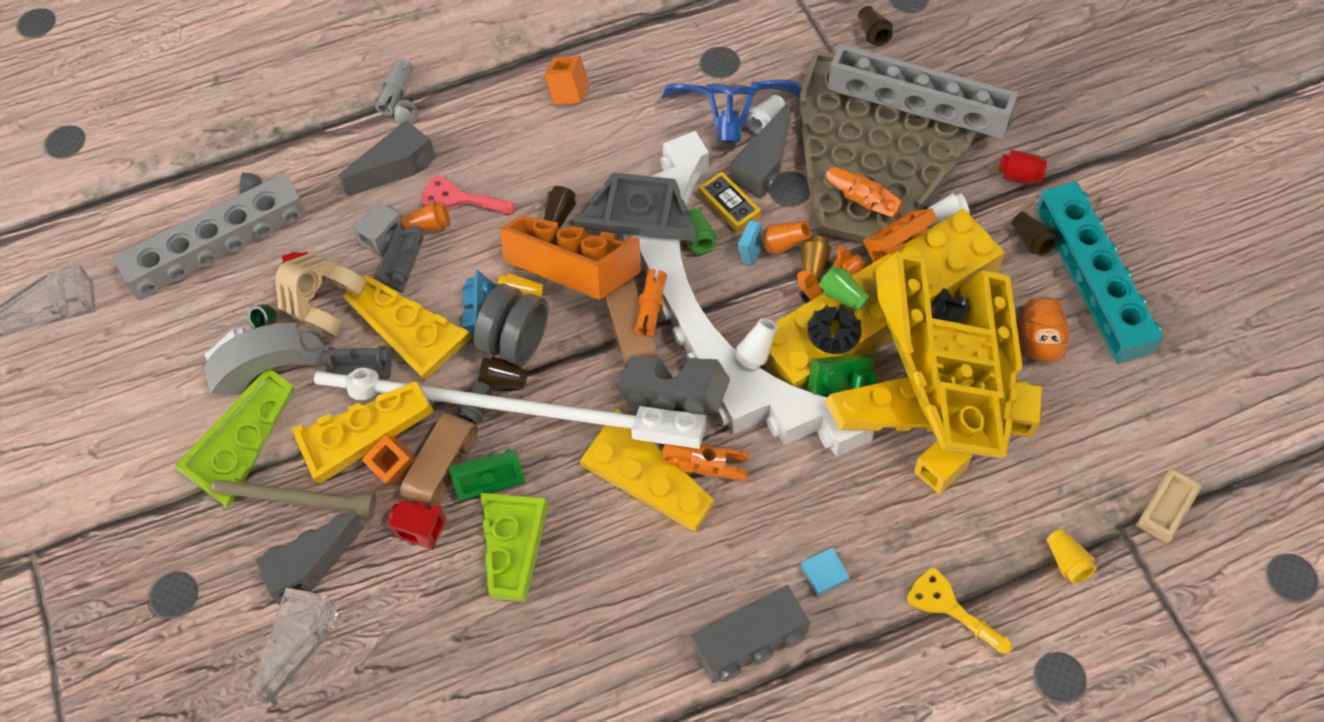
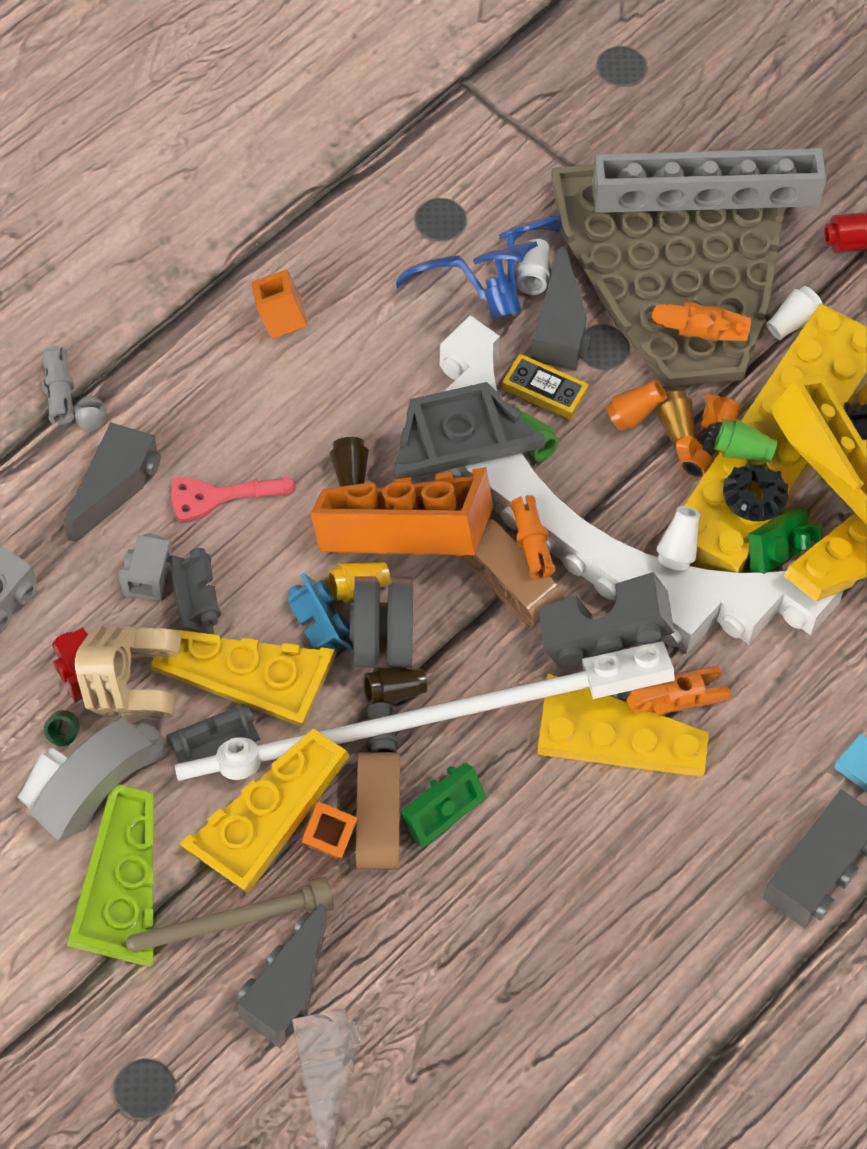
camera: 30 degrees left, 0 degrees up
(417, 522) = (392, 890): red brick -> none
(429, 218) = (202, 531): orange cone -> none
(513, 539) = (511, 867): lime wing -> none
(750, 243) = (599, 426): medium azure tile -> none
(875, 26) = (606, 116): dark brown cone -> none
(899, 232) = (764, 356): orange bracket -> none

